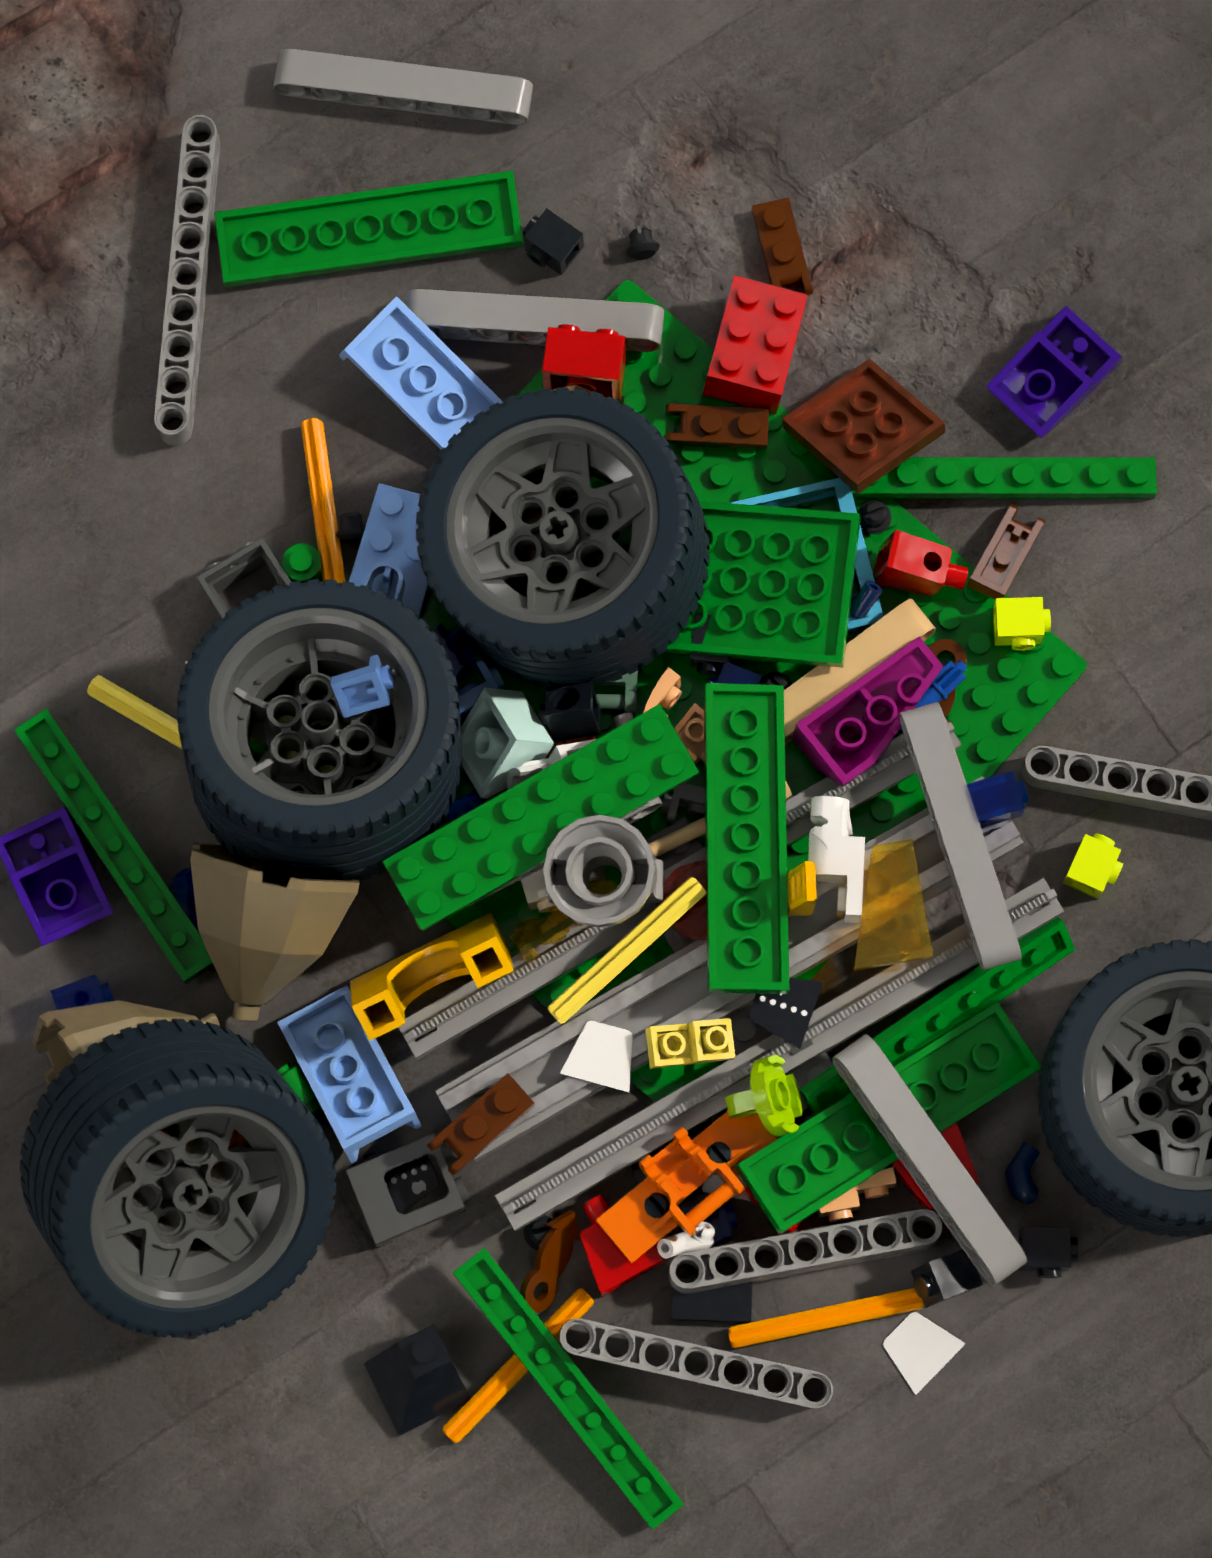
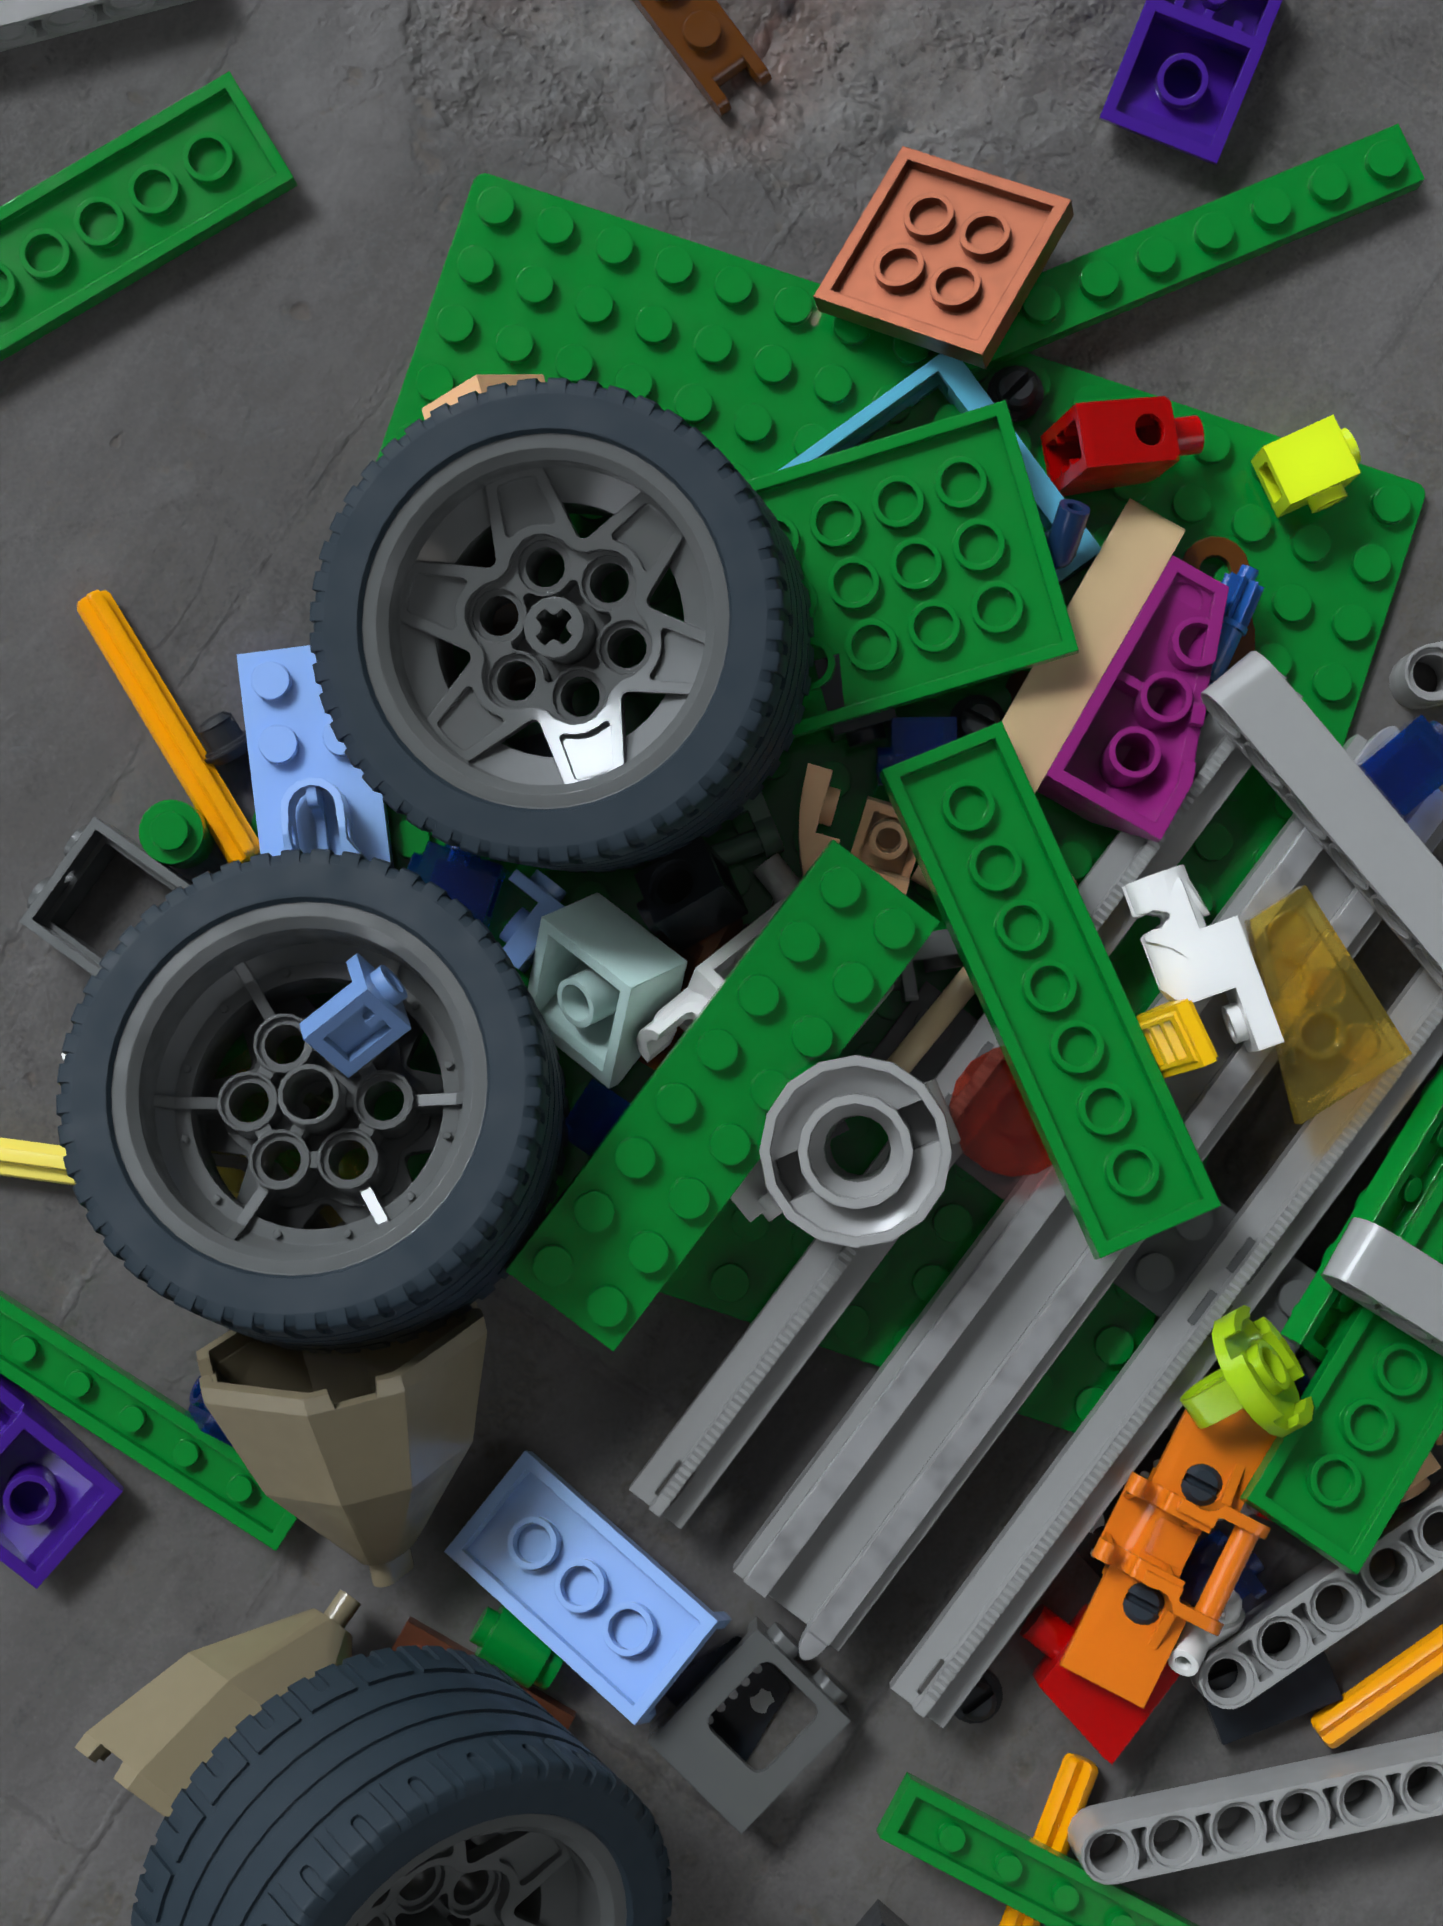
camera: 25 degrees left, 10 degrees up
(82, 993) = (137, 1647): clear blue brick -> none
(386, 991) = (588, 1440): yellow arch -> none
(419, 373) = (227, 456): light blue plate -> none
(483, 1122) = (832, 1596): reddish brown hinge -> none
(527, 318) = (363, 297): light grey beam -> none
(551, 927) = (786, 1257): clear yellow wing -> none
(551, 1261) = (1009, 1739): reddish brown brick -> none
(552, 241) = (338, 160): black brick -> none
(584, 360) = (473, 329): red brick -> none
(601, 1056) = (966, 1415): white sticker -> none
(626, 950) = (939, 1240): light yellow axle -> none
(642, 244) = (478, 108): black piece -> none
(690, 1043) = (1094, 1341): light yellow slope -> none
(719, 426) = (722, 347): reddish brown hinge -> none
(755, 344) = (722, 195): red brick -> none
(787, 1013) = (1226, 1235): black sticker -> none
(1004, 555) = (1237, 371): hinge -> none

